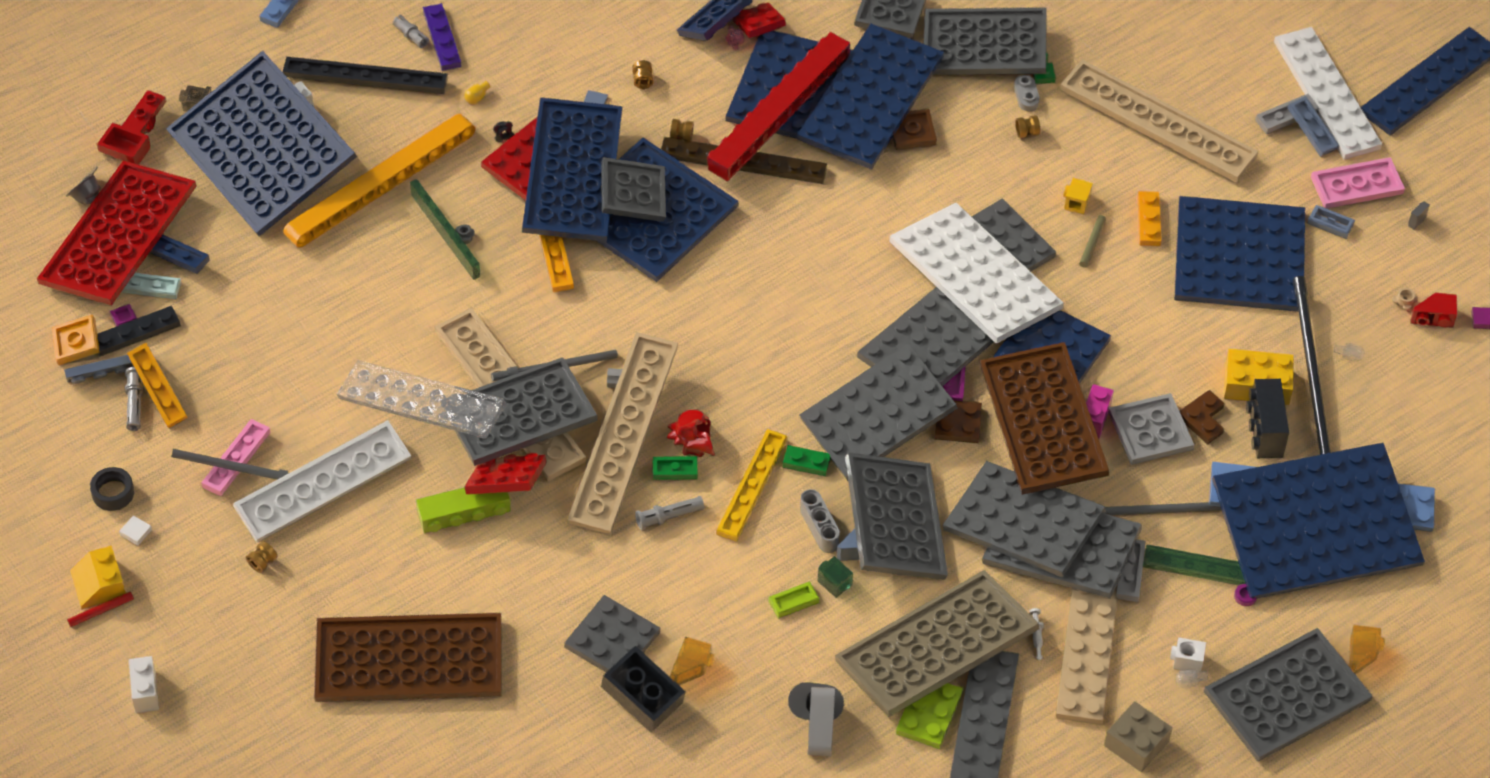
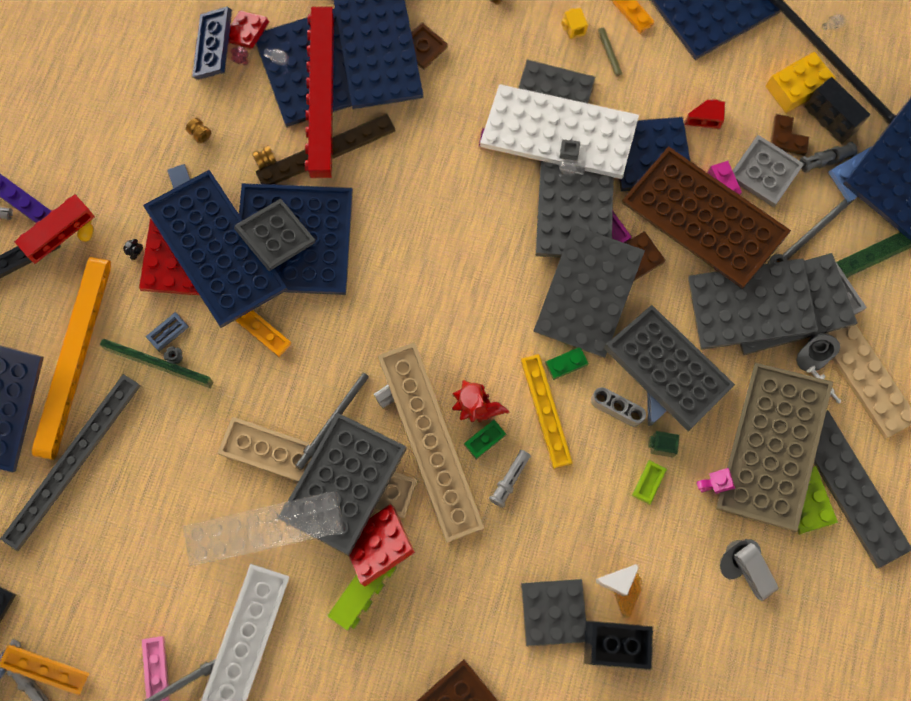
camera: 40 degrees left, 20 degrees up
(310, 256) = (70, 463): none -> dark grey plate
(450, 72) = (54, 229): none -> red brick
(475, 216) = (172, 336): none -> sand blue tile
(689, 635) = (619, 581): none -> white slope
(766, 56) = (277, 56): none -> clear cylinder
(857, 636) = (720, 482): none -> dark pink plate
(952, 304) = (570, 168): none -> clear cylinder
(965, 286) = (569, 150): none -> dark grey tile
(1052, 598) = (818, 351): none -> dark grey piece
(1136, 347) = (708, 114): none -> red slope
(1218, 453) = (829, 156): none -> dark grey piece

